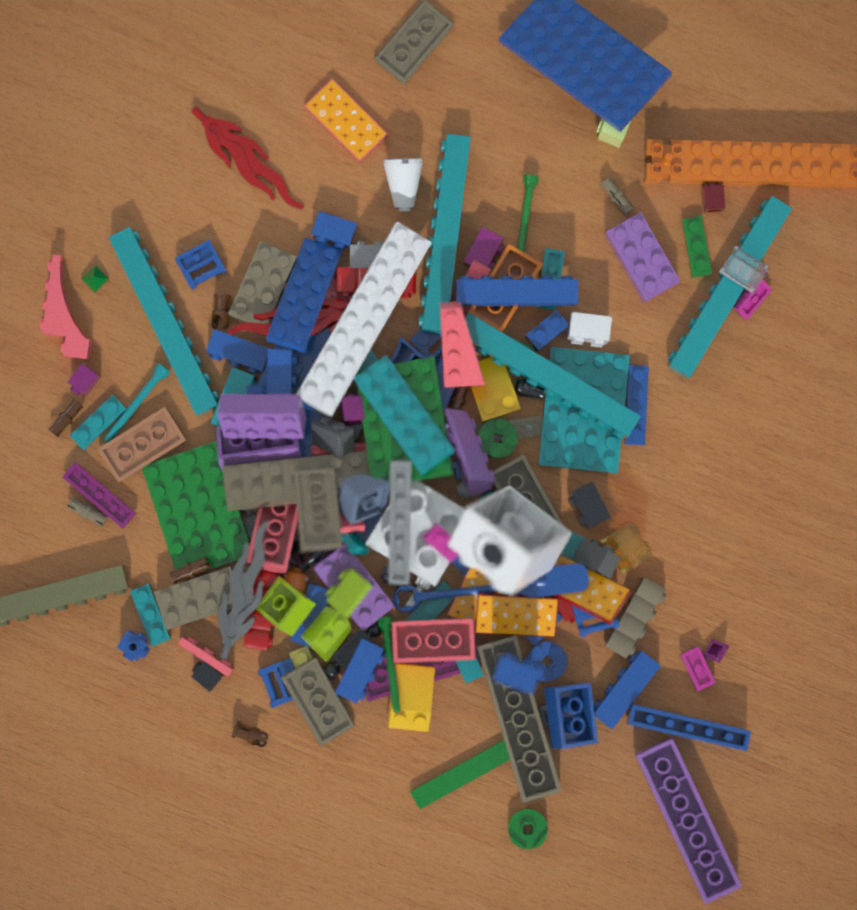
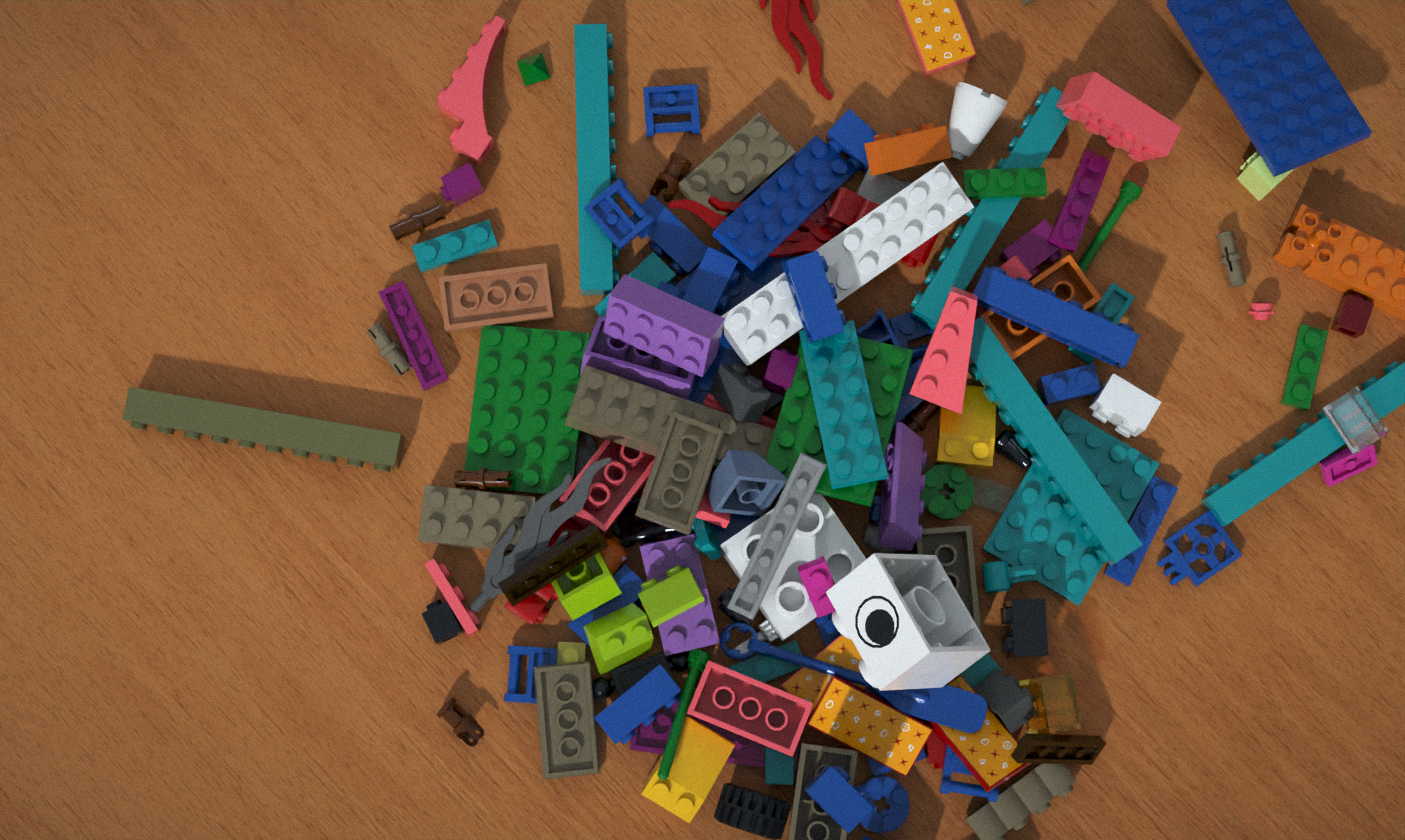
camera: 25 degrees right, 5 degrees down
(127, 642) = (361, 535): blue brick -> none
(150, 614) = (406, 513): teal plate -> none
(159, 373) = (559, 220): teal piece -> none
(196, 358) = (614, 220): none -> blue plate
(262, 606) = (553, 564): none -> dark brown plate
(353, 353) = (814, 296): none -> blue brick
(370, 221) = (907, 148): none -> orange brick
(444, 215) = (1005, 183): none -> green plate
(465, 705) = (752, 811): none -> black tyre
(499, 203) = (1079, 201): none -> magenta plate
(500, 136) = (1118, 117): none -> coral brick
(558, 478) = (999, 576): none -> teal beam
(642, 257) = (1229, 349): medium lavender brick -> none
(644, 574) = (1058, 749): none -> dark brown plate
(653, 221) = (1261, 310): none -> coral plate
(672, 414) = (1180, 563): none -> blue piece

